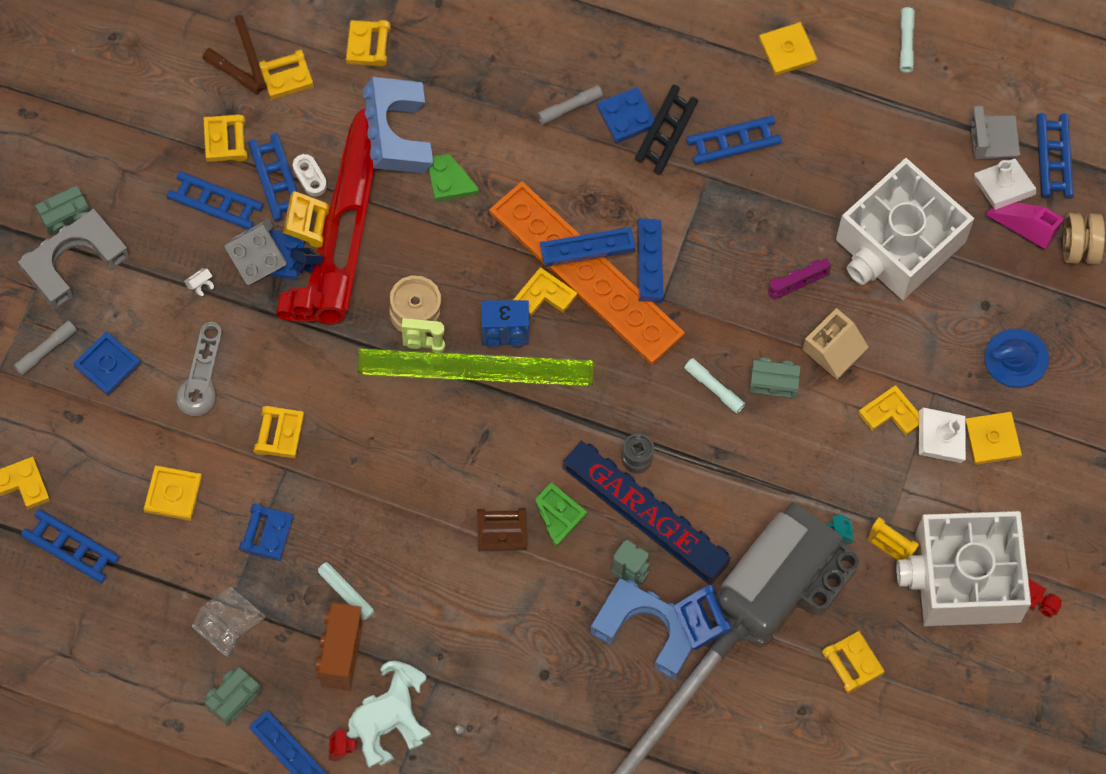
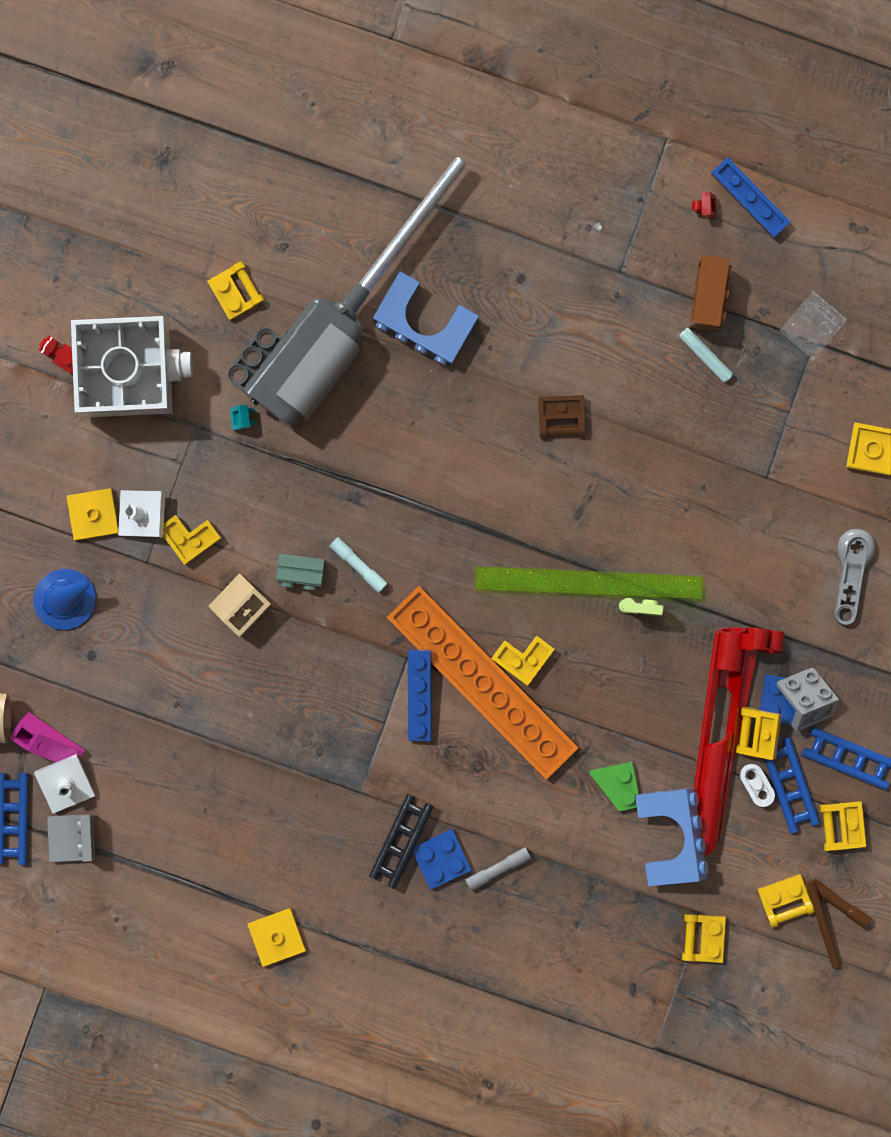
camera: 175 degrees left, 20 degrees up
(198, 279) = (861, 669): white tile -> none
(232, 696) = (806, 250): sand green brick -> none
(274, 534) = (775, 409): blue plate -> none
(286, 435) = (767, 511): yellow plate -> none
(307, 258) = (757, 690): dark blue tile -> none
(387, 712) = (665, 235): light aqua animal -> none
(414, 299) = (663, 641): tan wheel -> none
(505, 323) = (561, 620): blue brick -> none
(559, 513) = (508, 432): bright green wing -> none
(587, 246) = (481, 703): blue plate -> none
(631, 563) = (440, 375): sand green brick -> none
(637, 453) = (433, 490): dark grey wheel -> none
(646, 512) = (425, 432): dark blue brick -> none
(696, 620) = (380, 315): blue plate -> none
(726, 151) = (341, 819): blue bar -> none
(799, 278) = (274, 677): magenta plate -> none
(891, 541) = (187, 397): yellow plate -> none
(902, 230) = (171, 716): white brick -> none
(906, 52) = (153, 962): light aqua piece -> none

